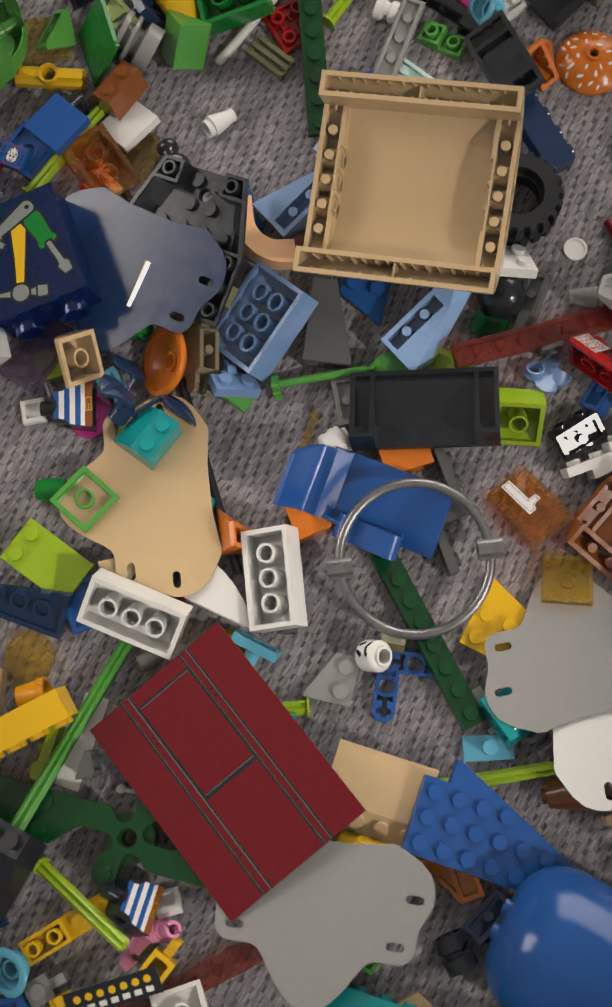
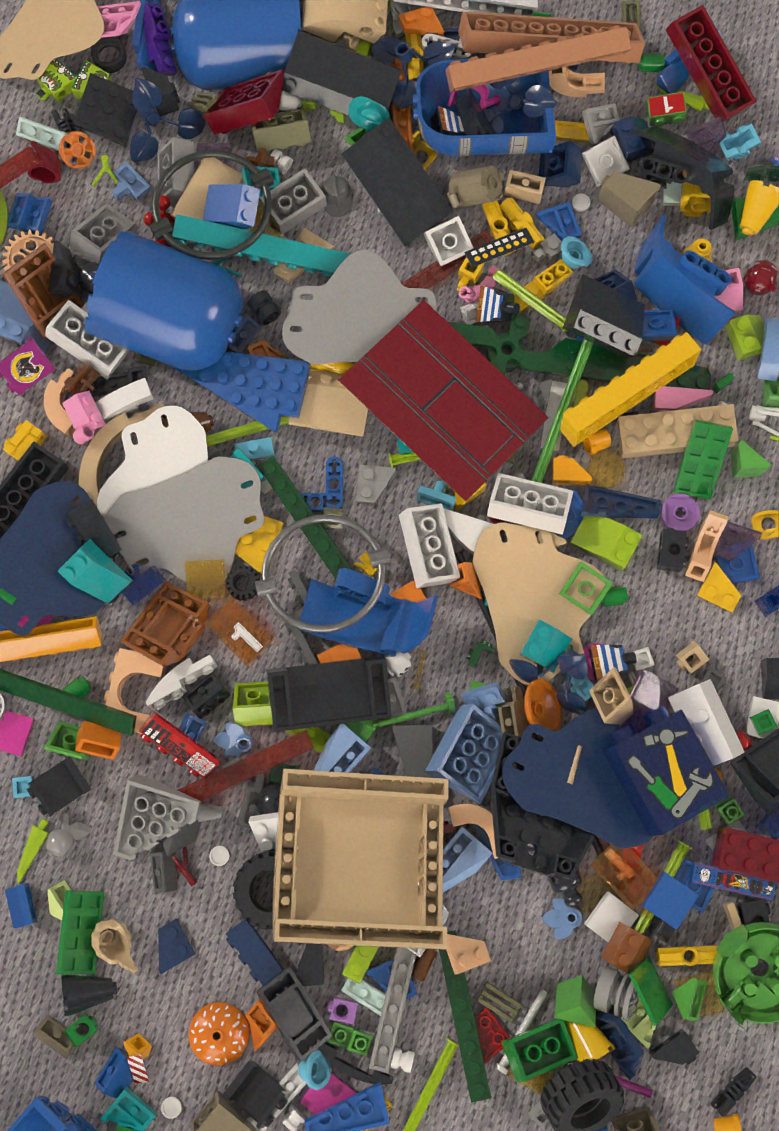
camera: 170 degrees right, 0 degrees up
(79, 658) = (568, 472): none -> light orange slope
(187, 132) = (559, 918): none -> medium blue plate
(218, 122) = (534, 931): white cone -> none
(237, 440) = (473, 654): none -> dark green bracket
(299, 105) = (466, 953): none -> light nougat wing
(359, 571) = (367, 567): none -> yellow piece
(373, 655) = (346, 500): white head -> none
(447, 58) = (351, 1005): none -> medium lavender brick
(532, 563) = (232, 578): none -> black tyre

